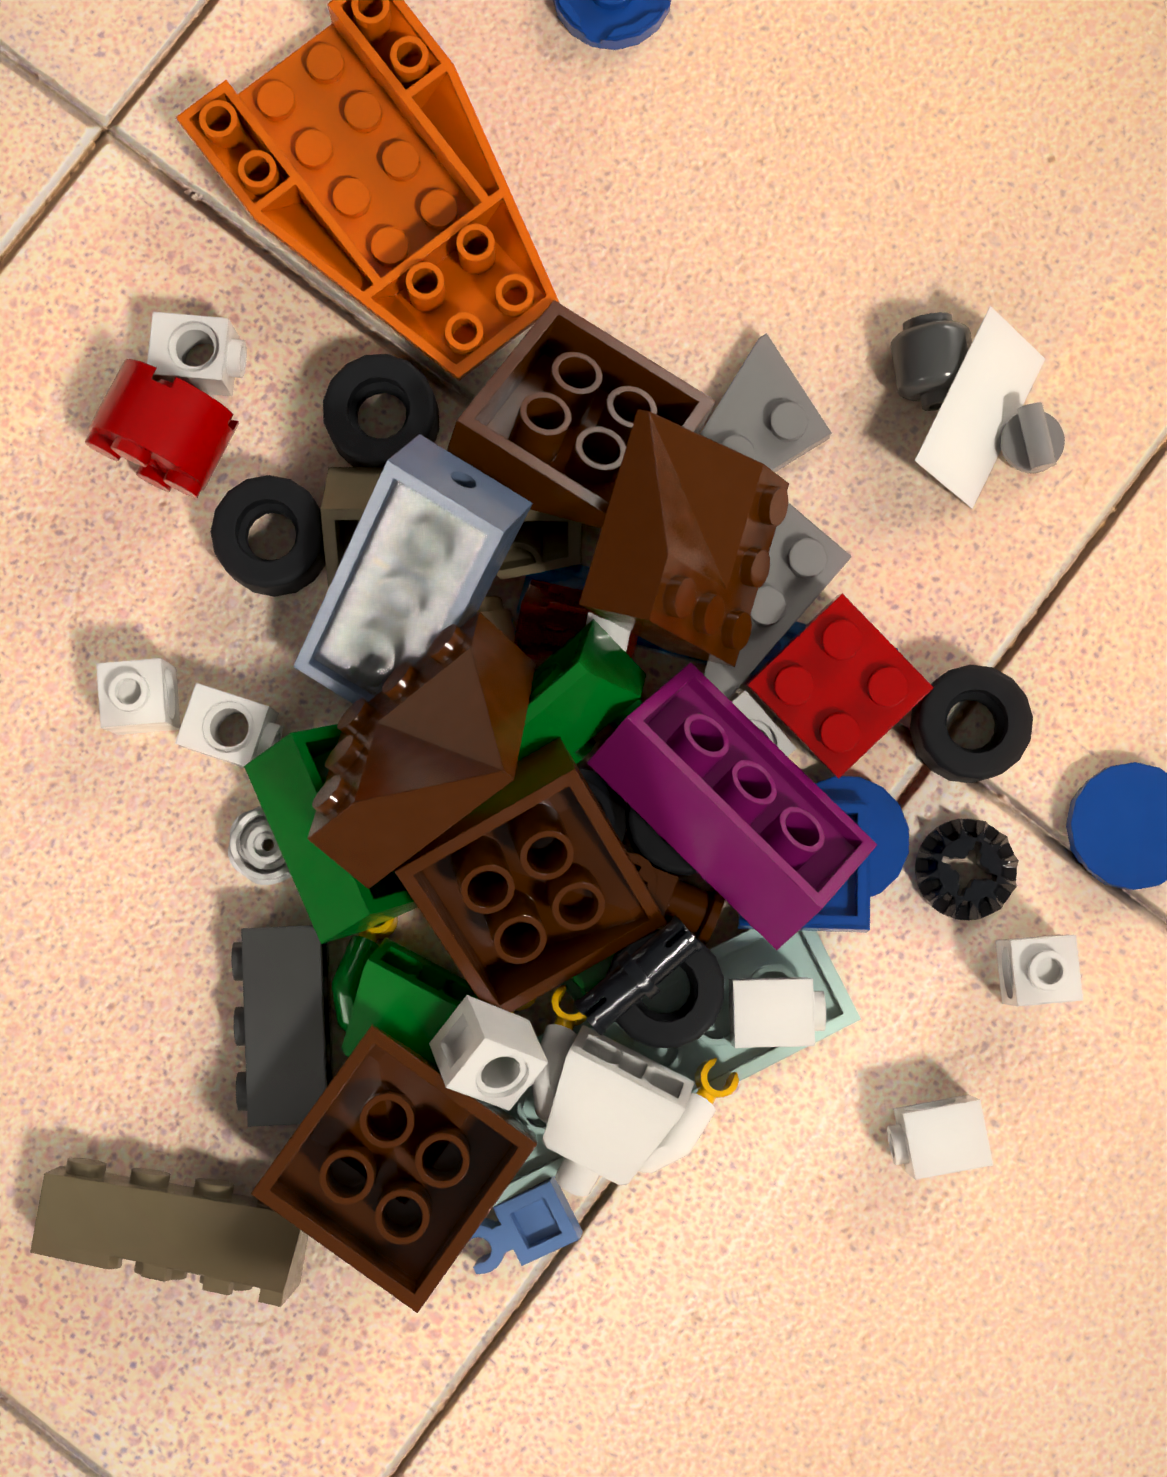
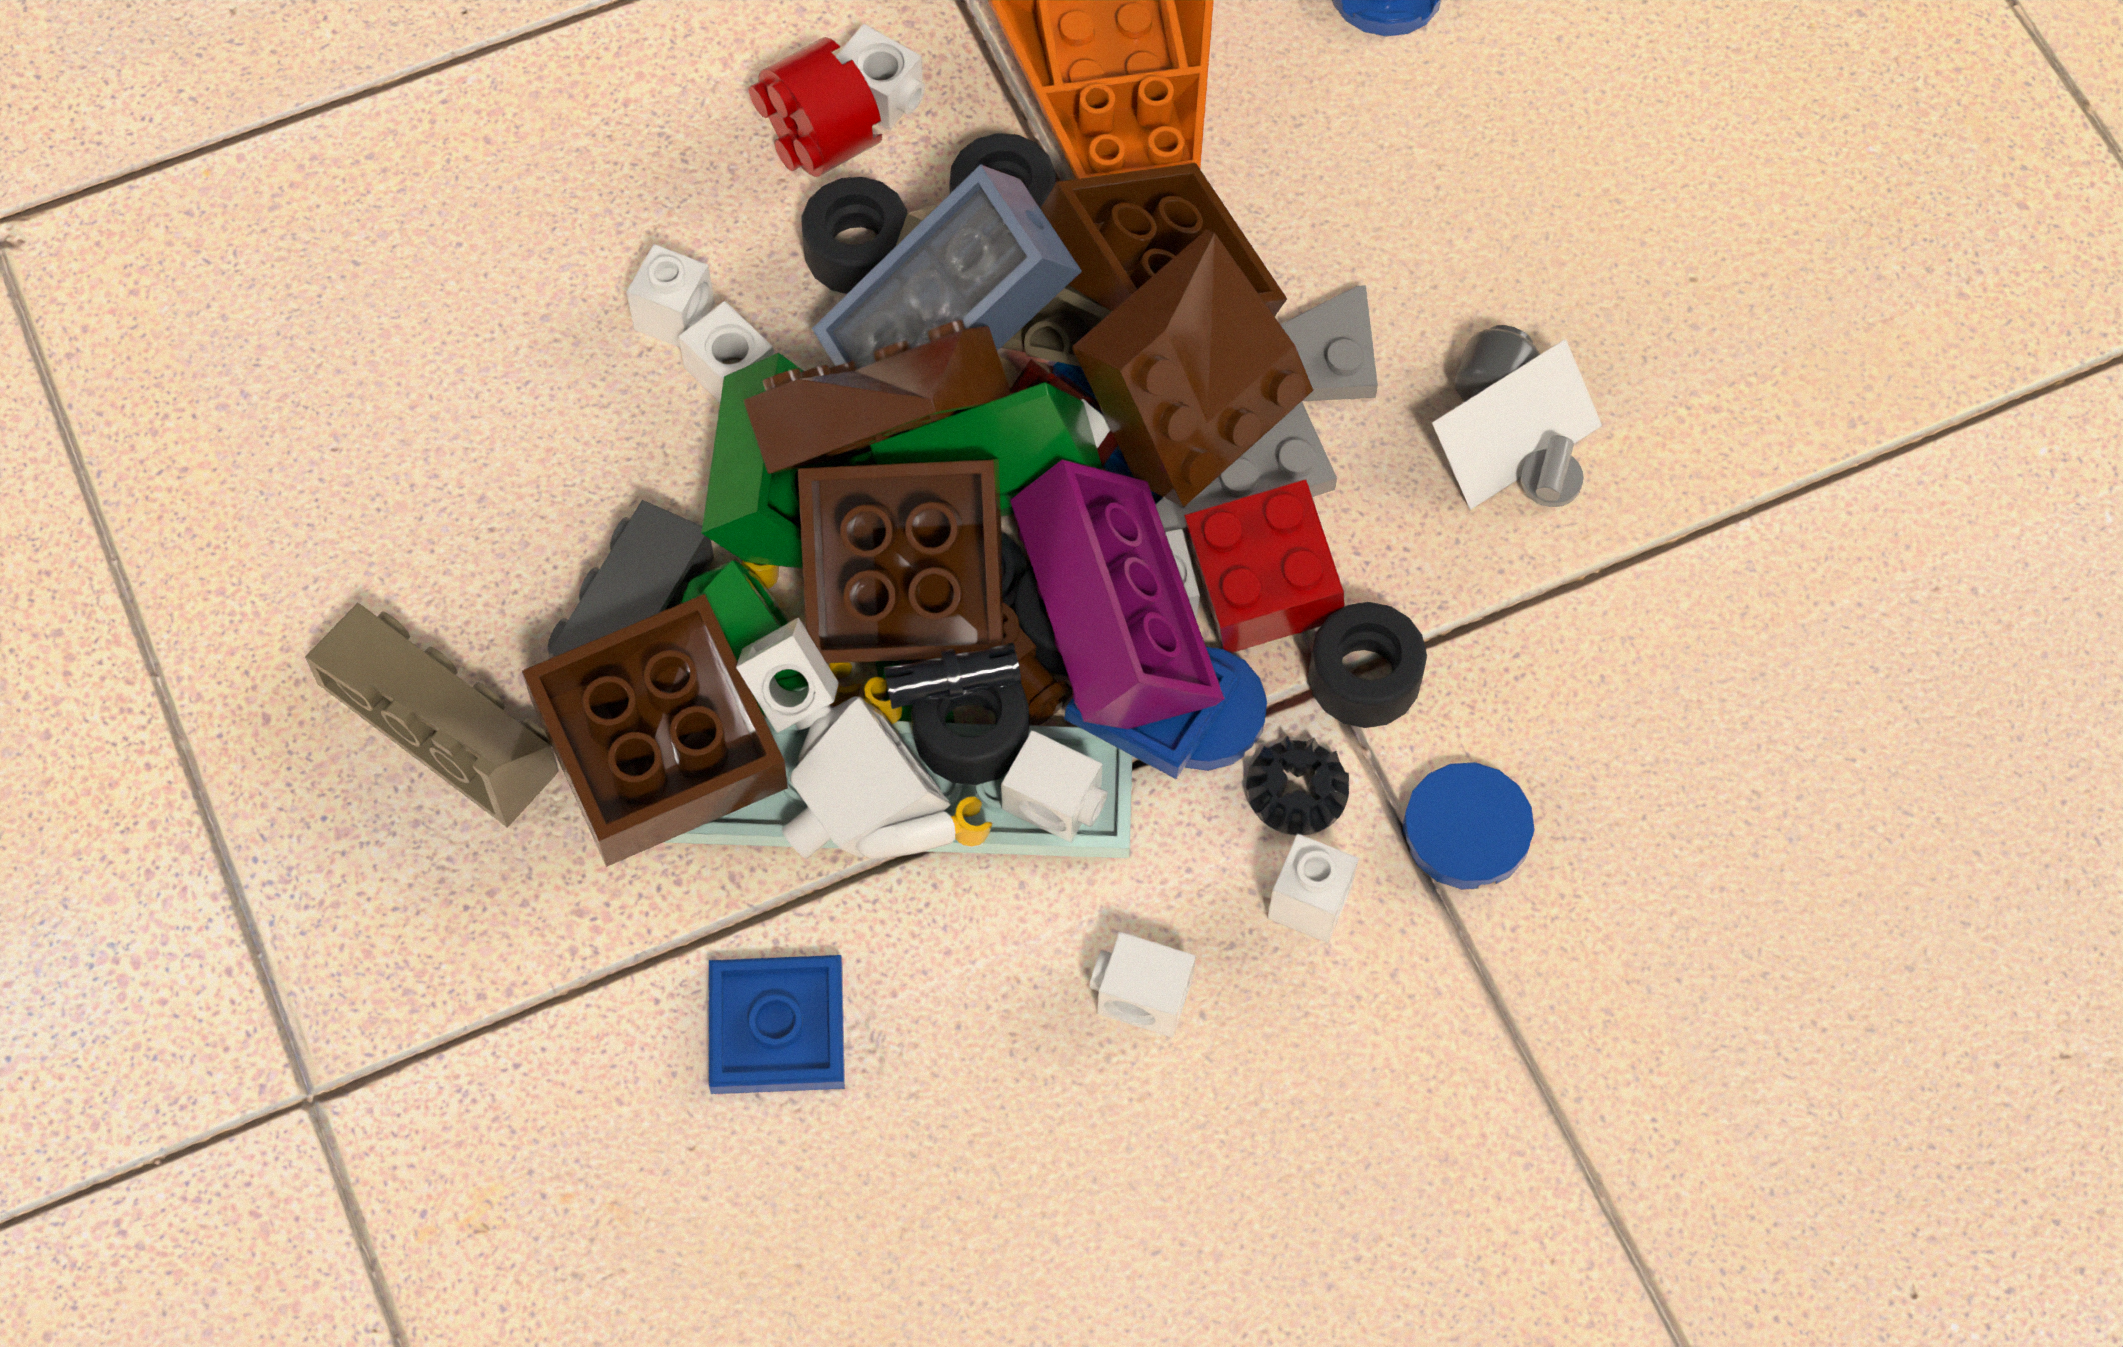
camera: 25 degrees right, 20 degrees down
(247, 849) = (684, 459): white plate -> none
(530, 1225) = (738, 871): medium blue plate -> none
(642, 1339) = (776, 1024): none -> blue tile

